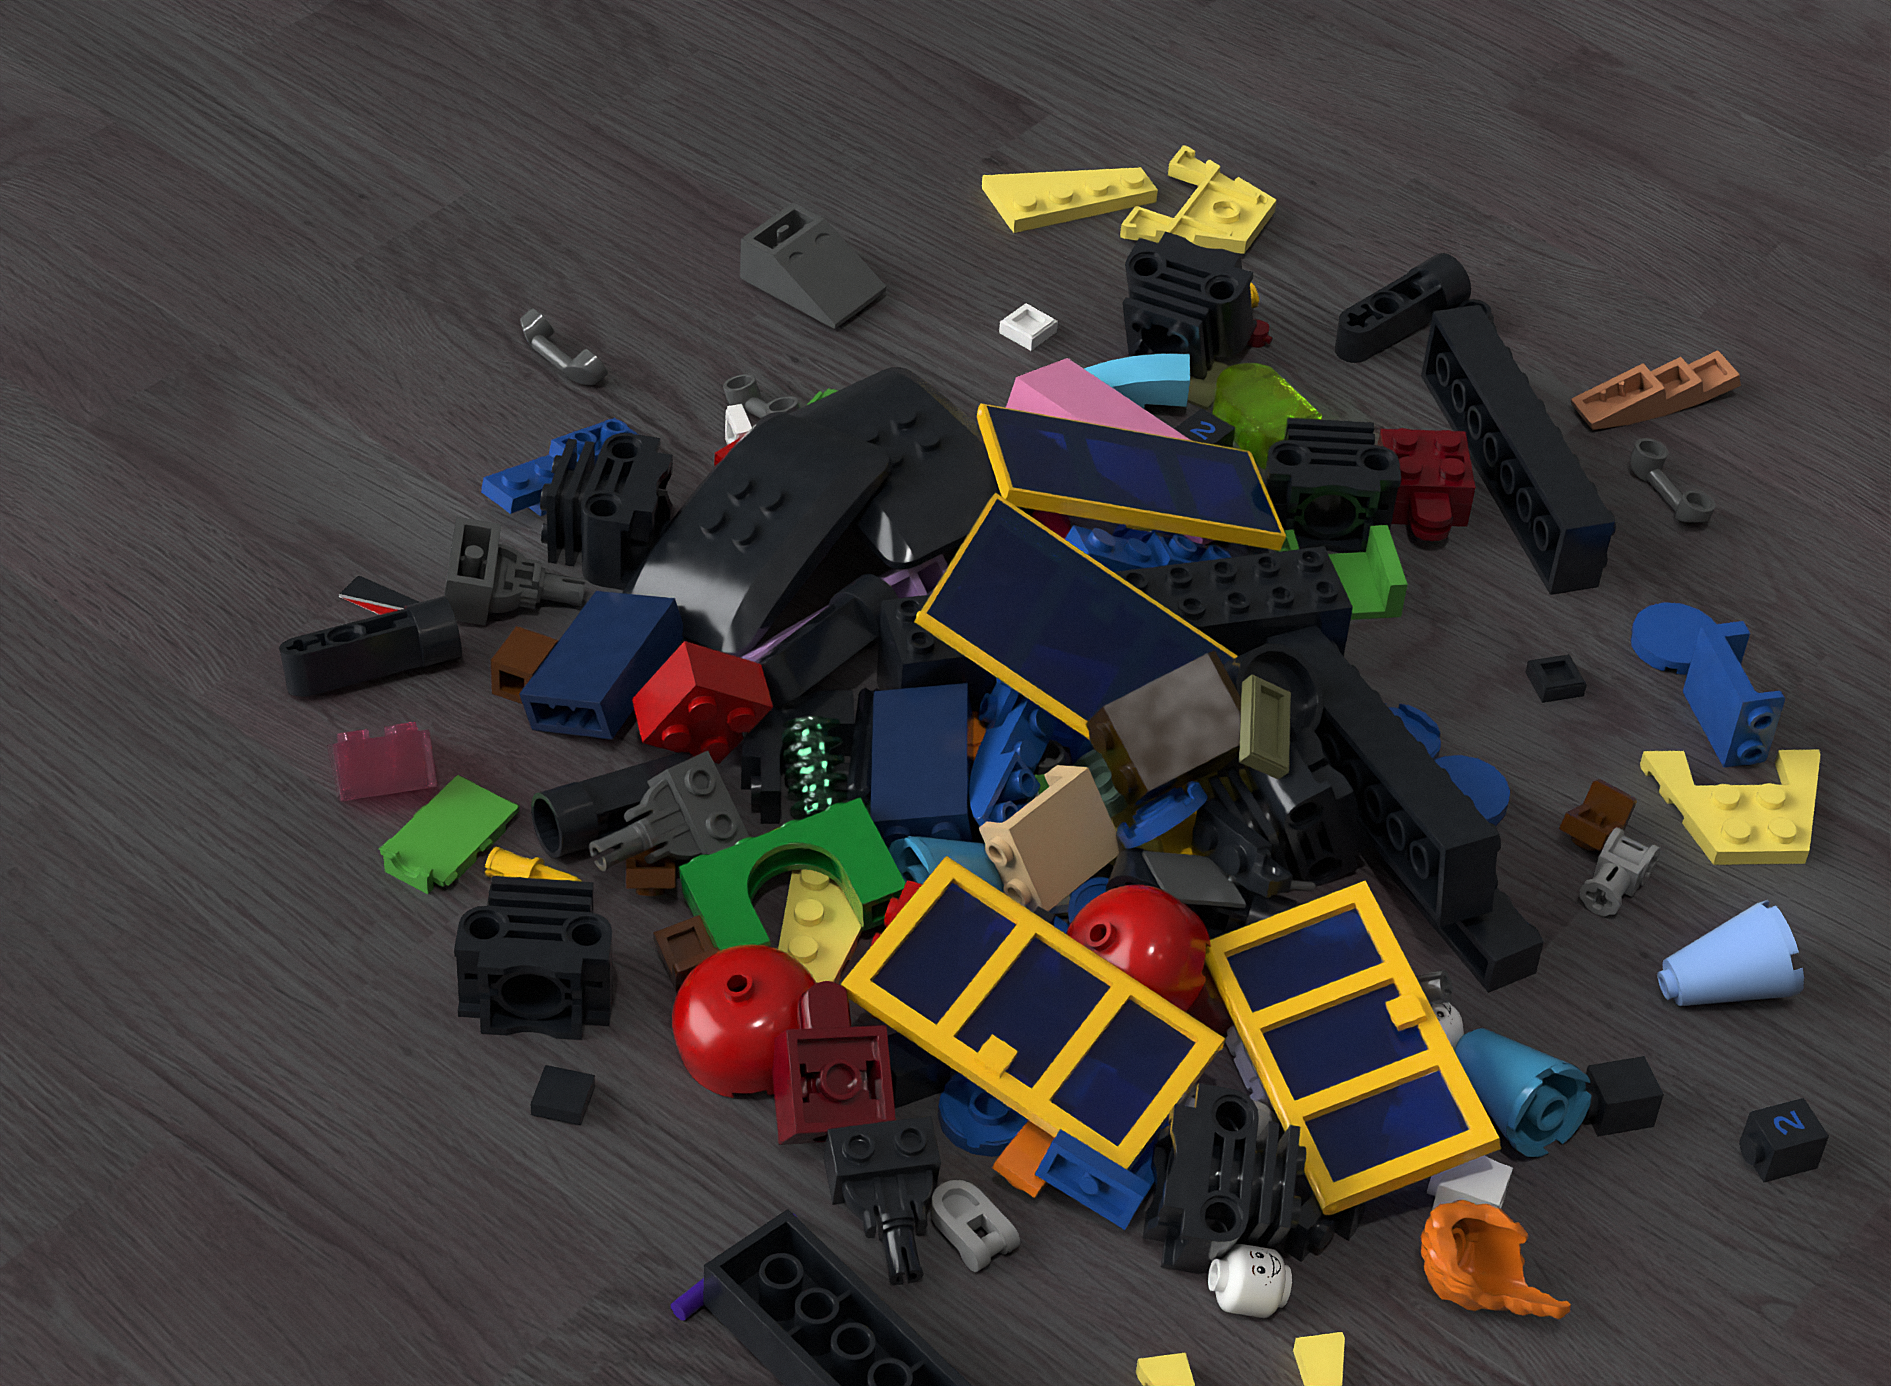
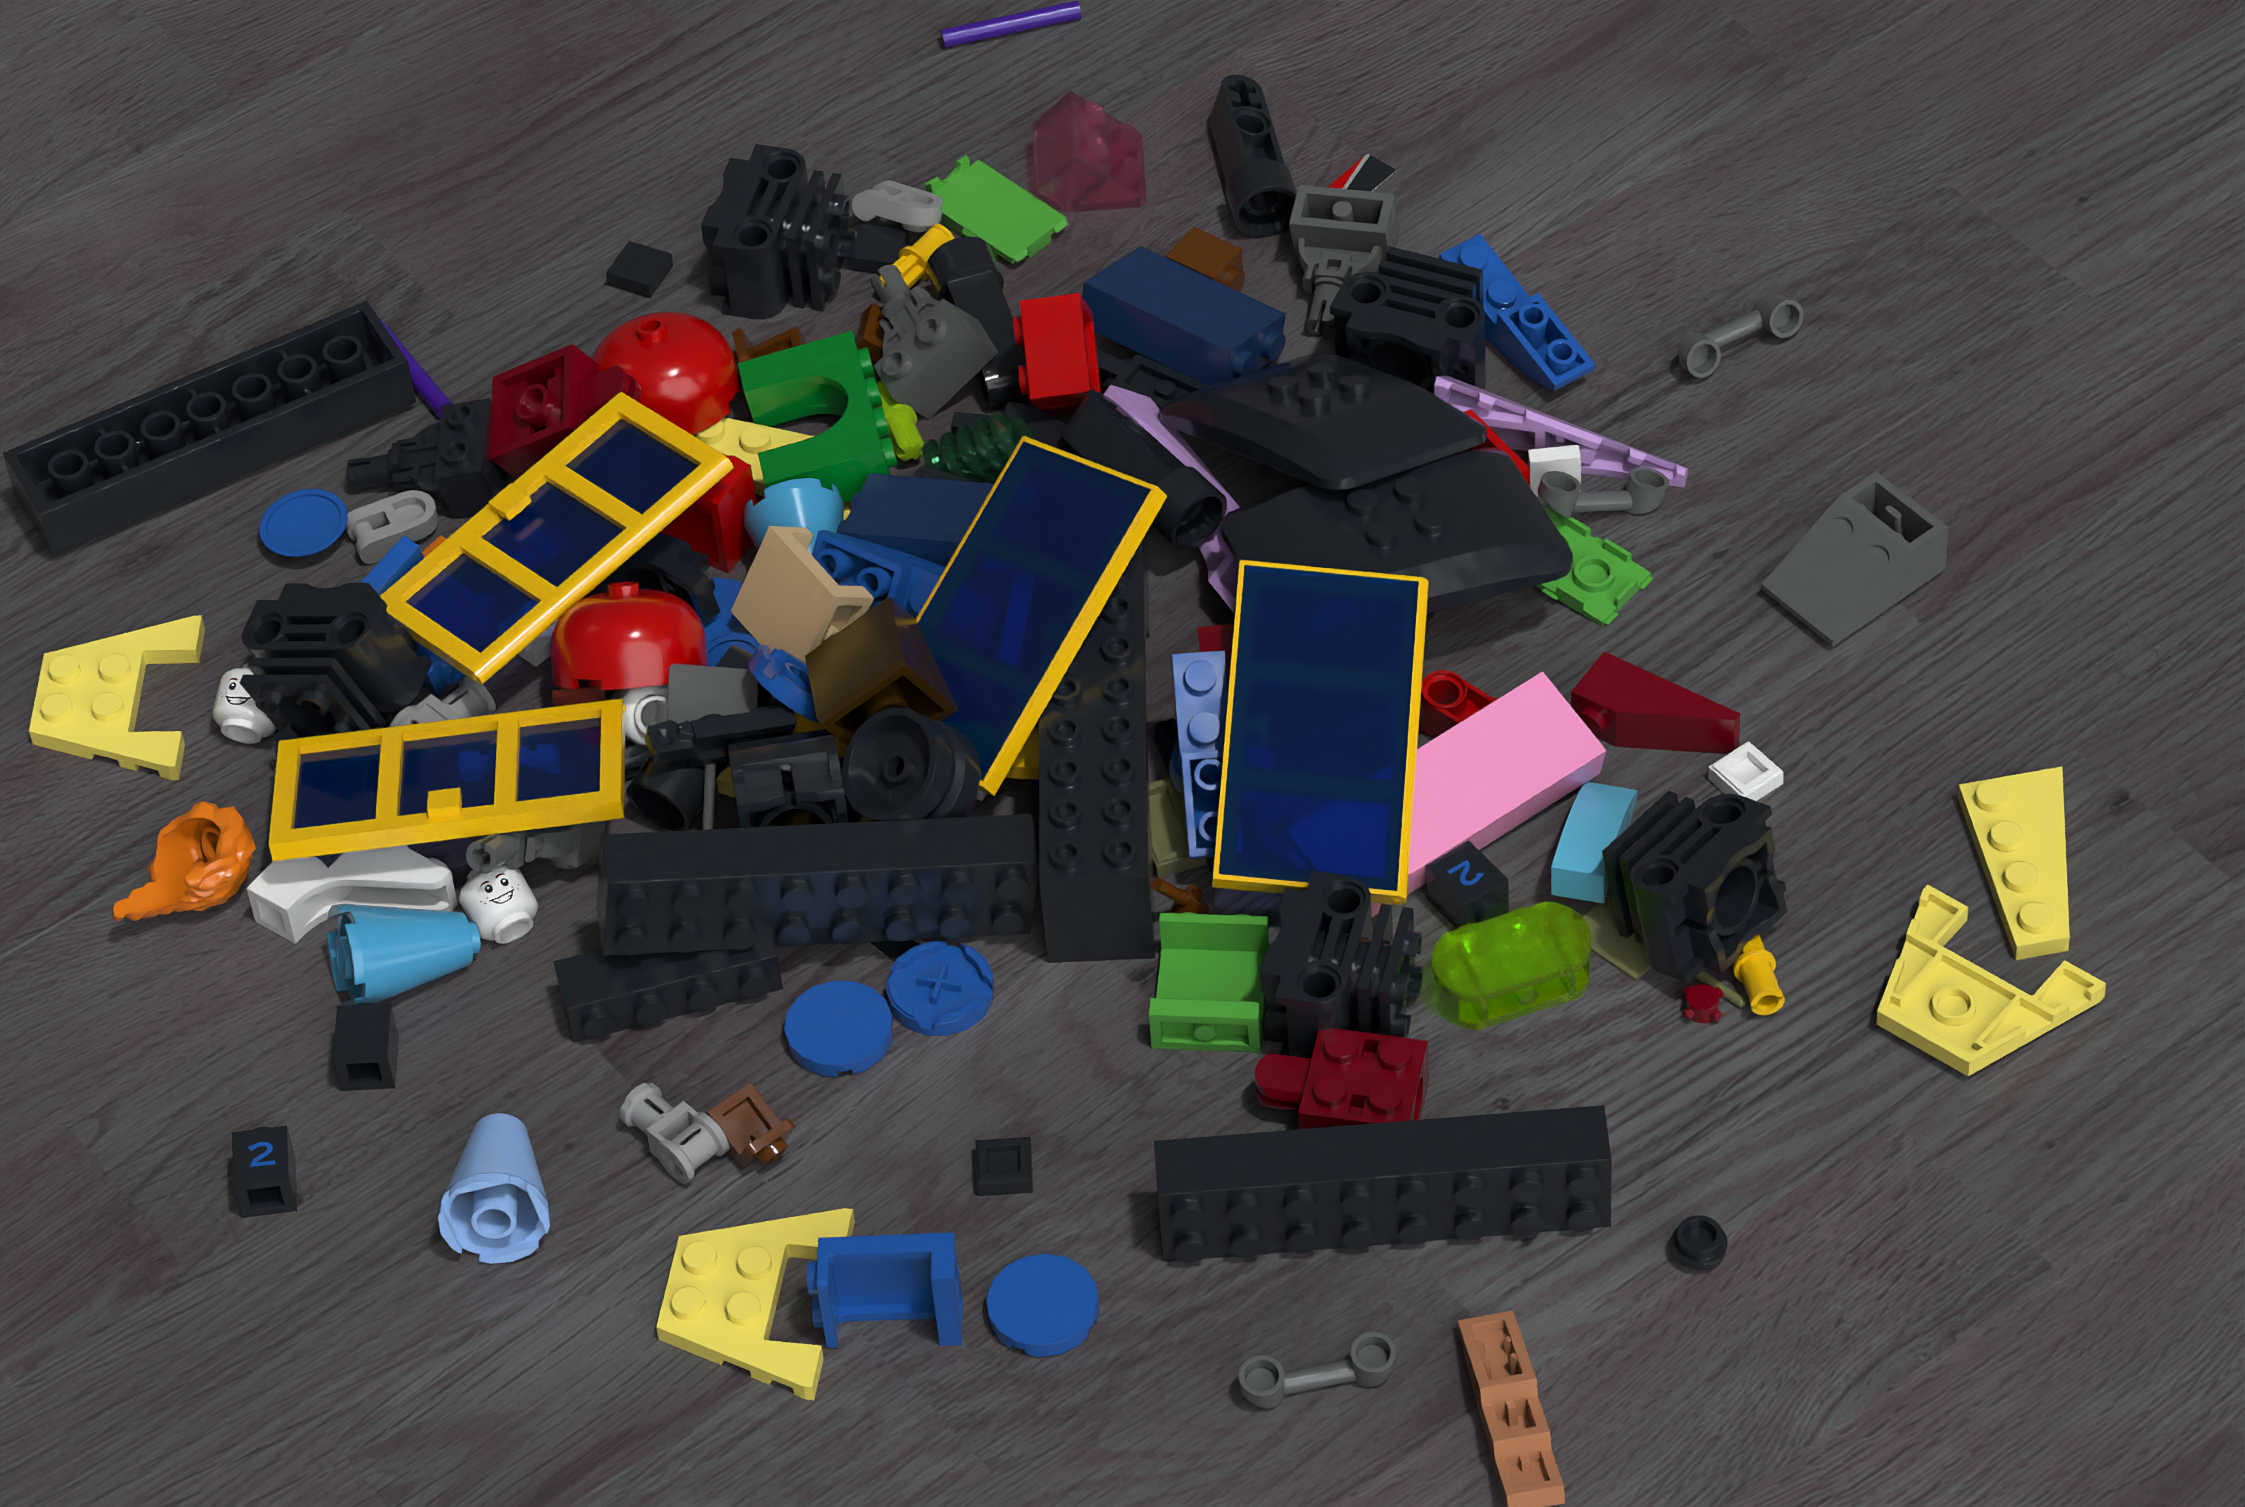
camera: 110 degrees right, 5 degrees up
(167, 860) = (1010, 24): none -> dark purple bar
(464, 877) = (900, 203): none -> light grey plate
(698, 443) = (1531, 429): none -> lavender wedge
(987, 369) = (1649, 712): none -> dark red slope
(991, 1296) = (303, 523): none -> blue piece
(1265, 727) = (820, 720): olive tile -> none
(1401, 307) = (1734, 1181): black beam -> none

